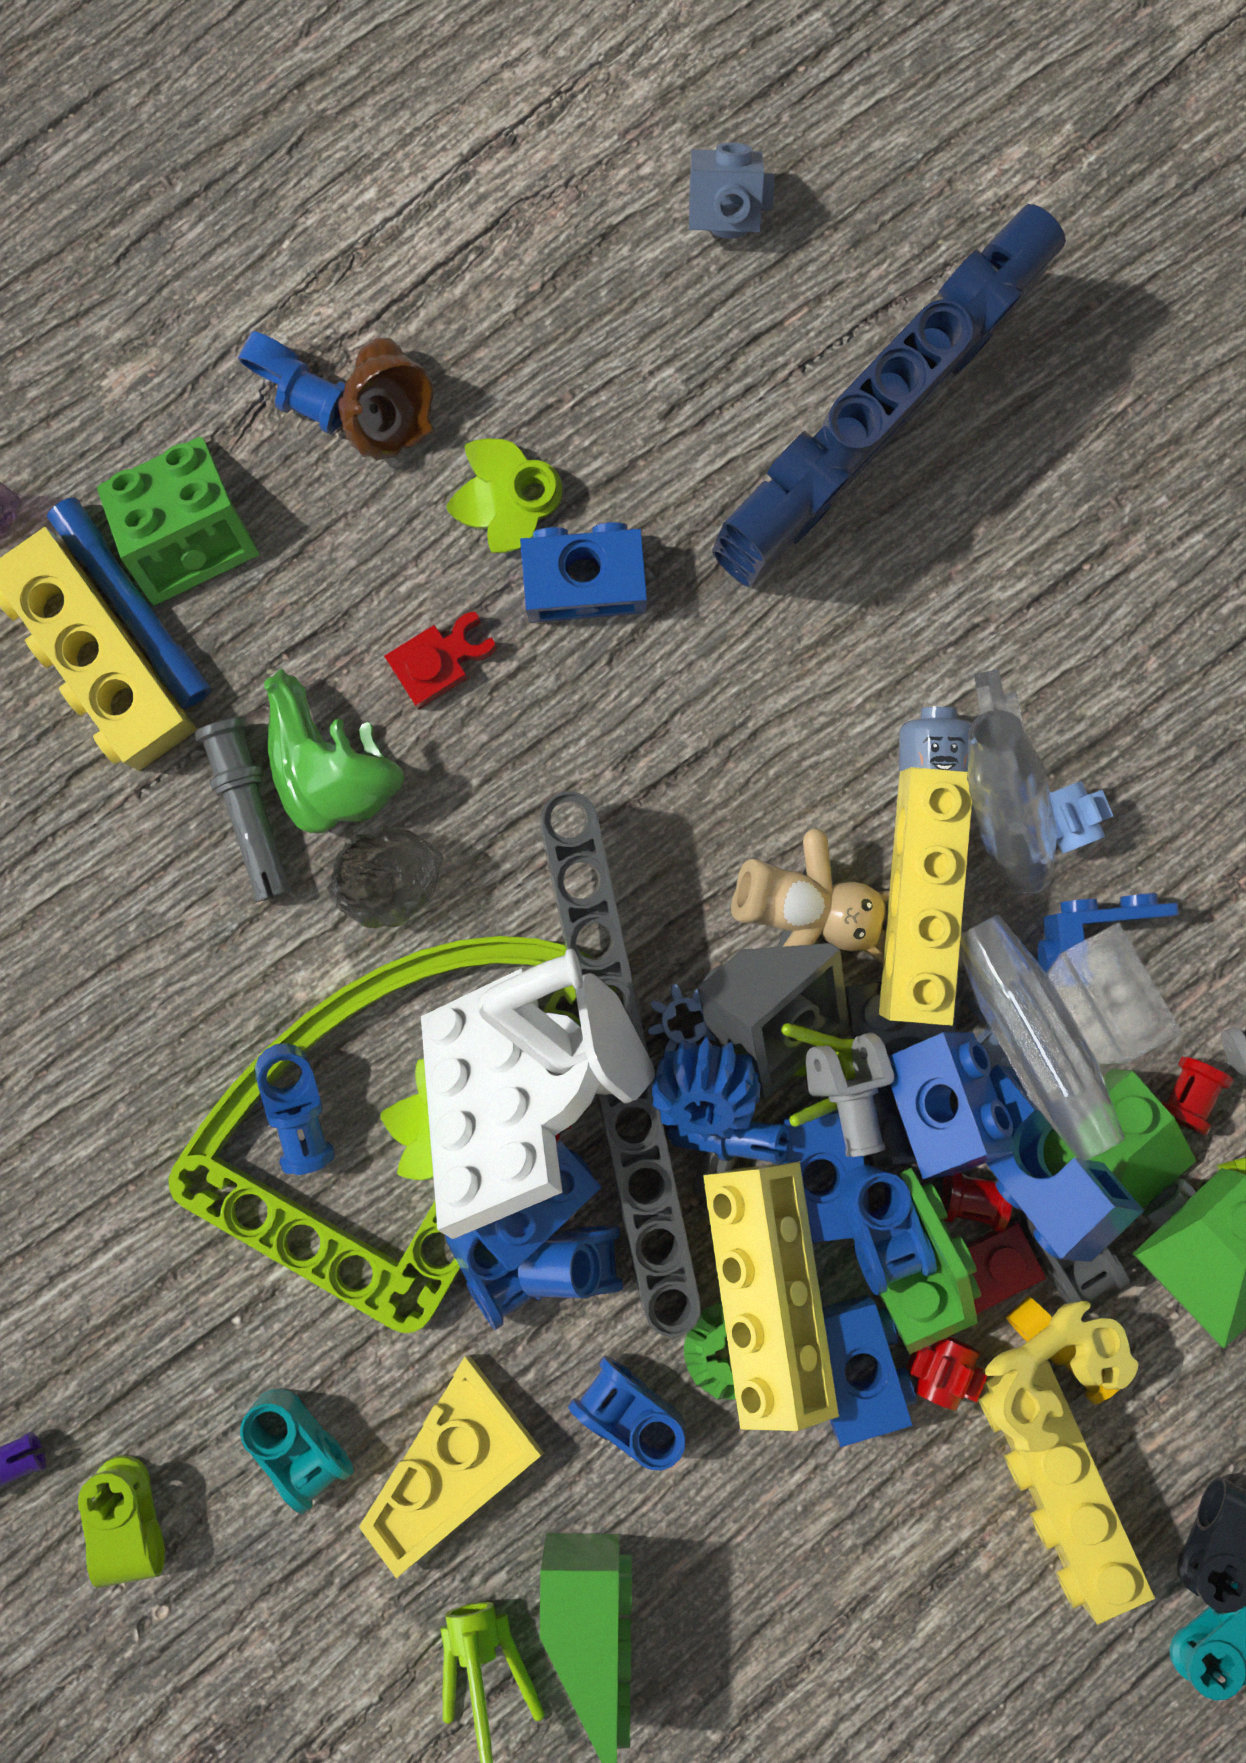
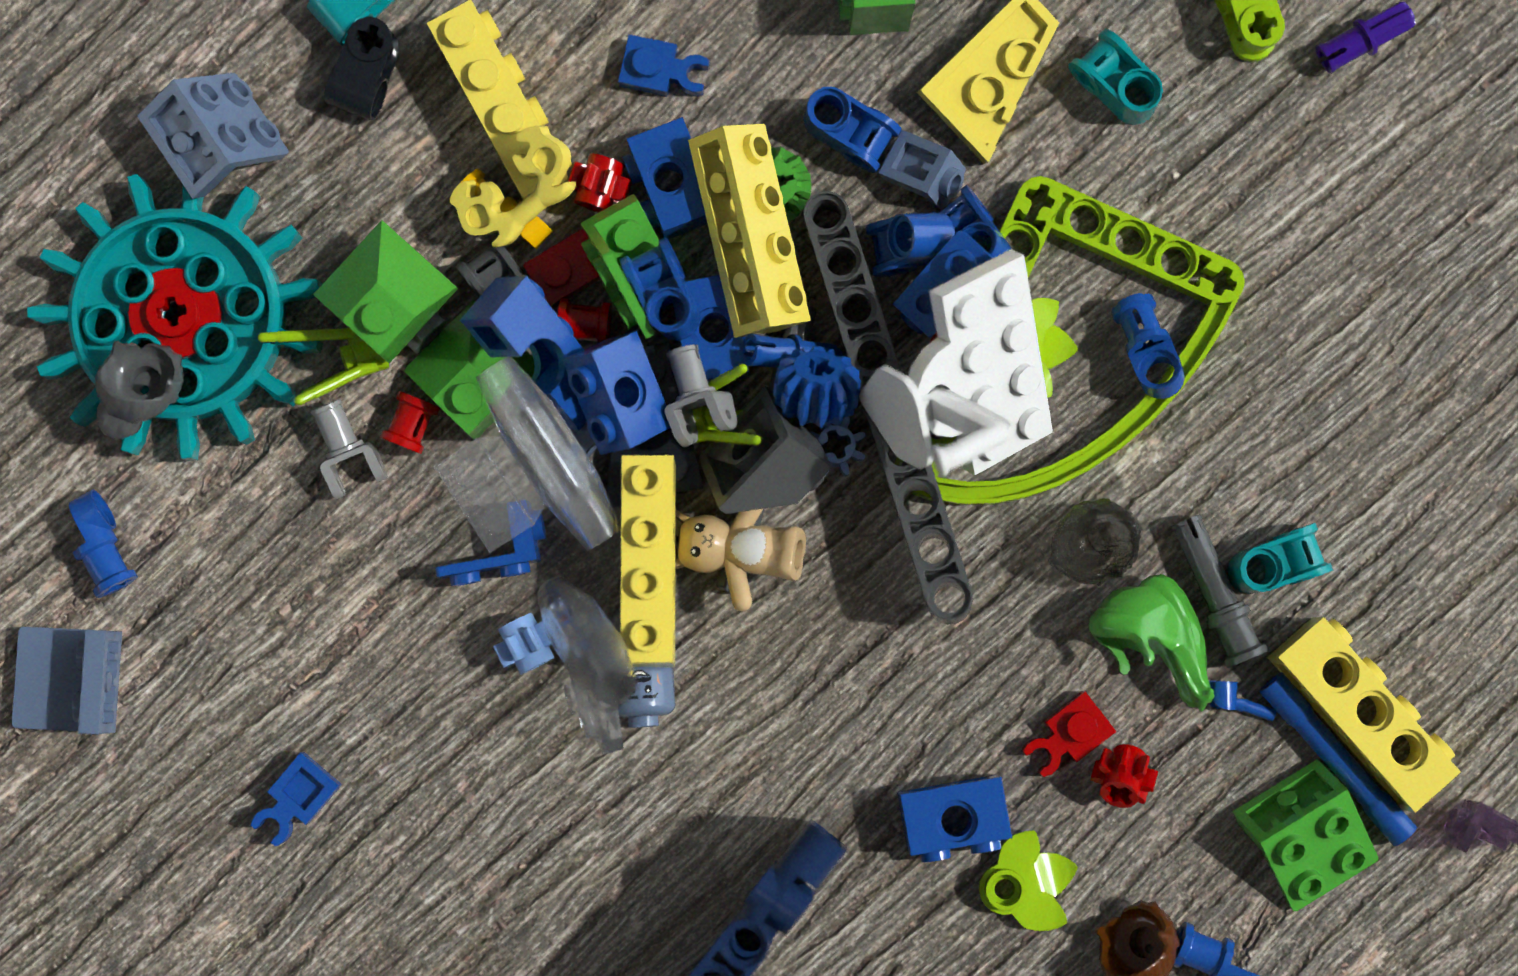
camera: 170 degrees right, 0 degrees up
(158, 839) = (1286, 559): none -> teal piece
(249, 681) = (1226, 698): none -> blue hand
(380, 602) = (1124, 776): none -> red gear
(544, 1354) = (924, 169): none -> sand blue bracket
(865, 1515) = (653, 65): none -> blue plate

